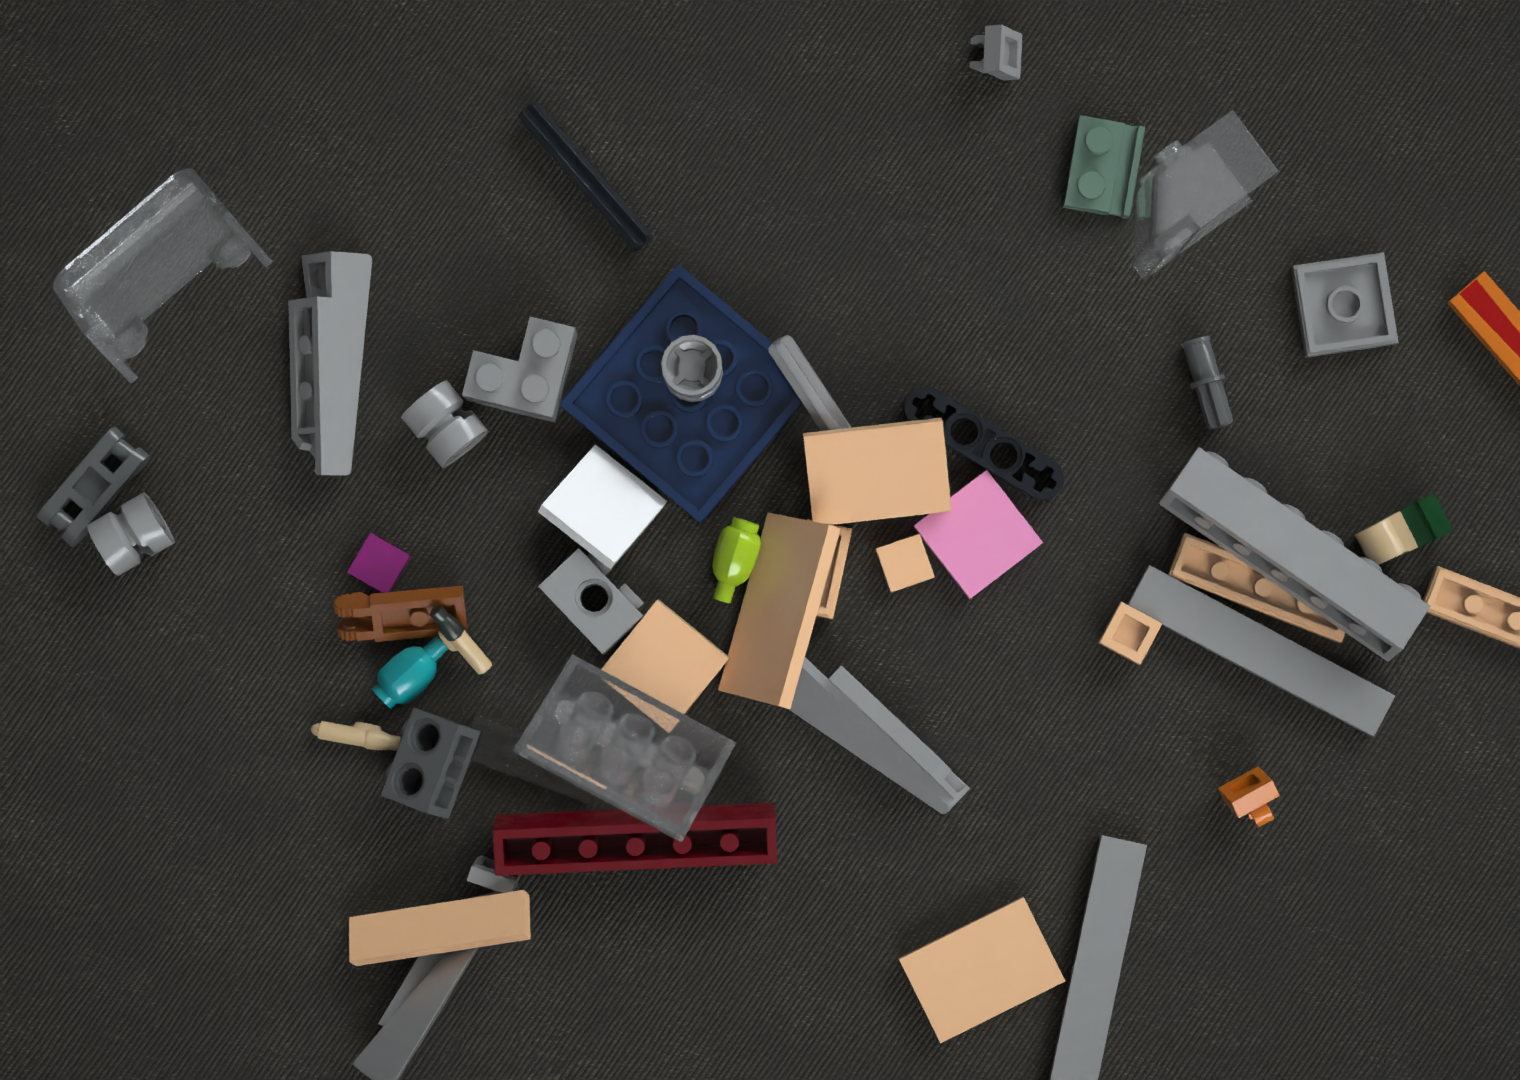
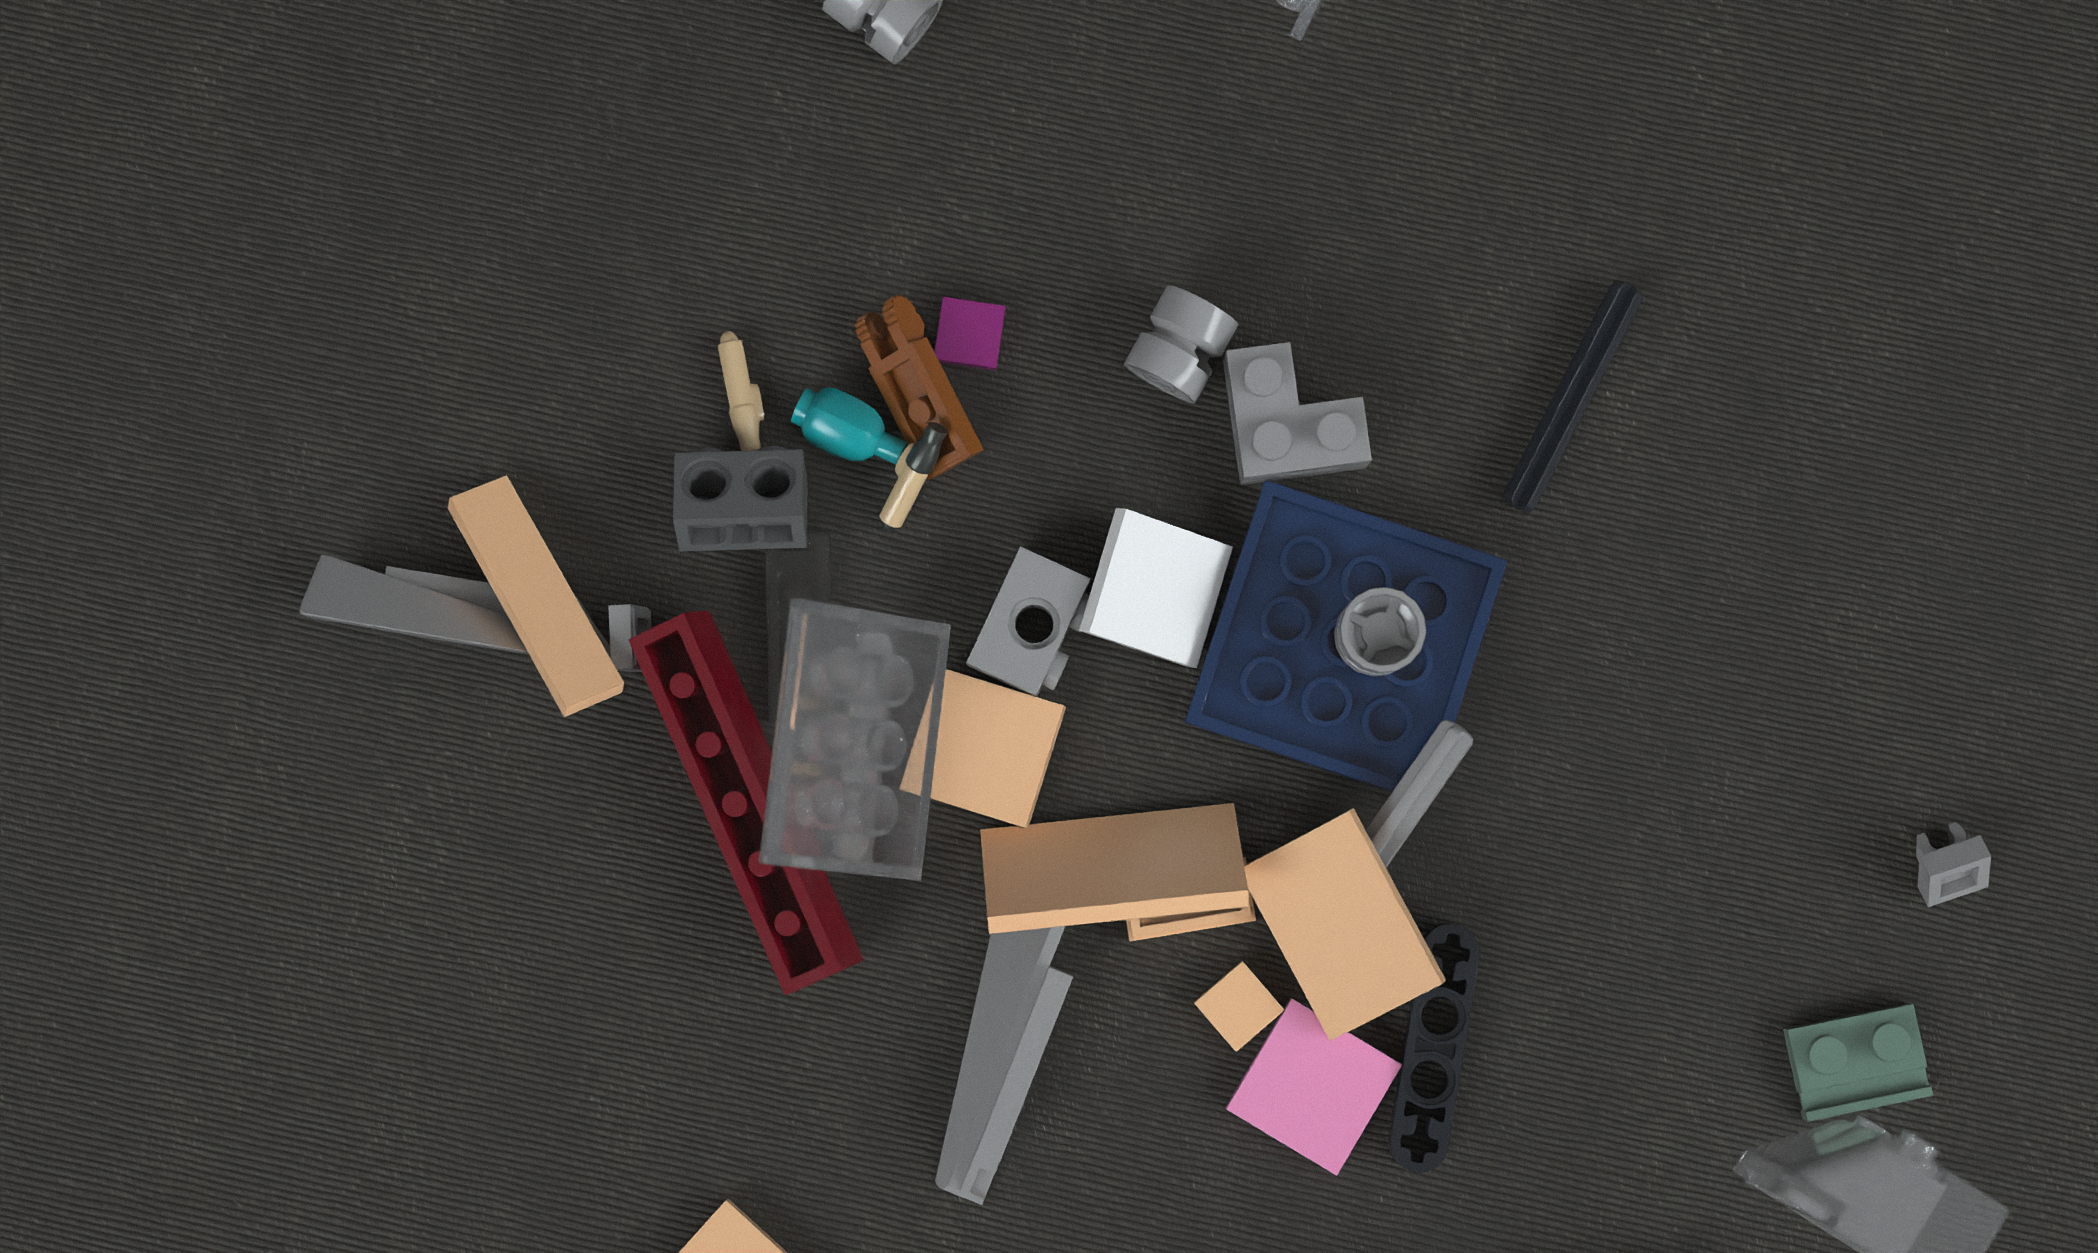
camera: 70 degrees right, 0 degrees up
(328, 357) = (1208, 162): light grey wedge -> none
(735, 556) = (1159, 784): lime plant -> none

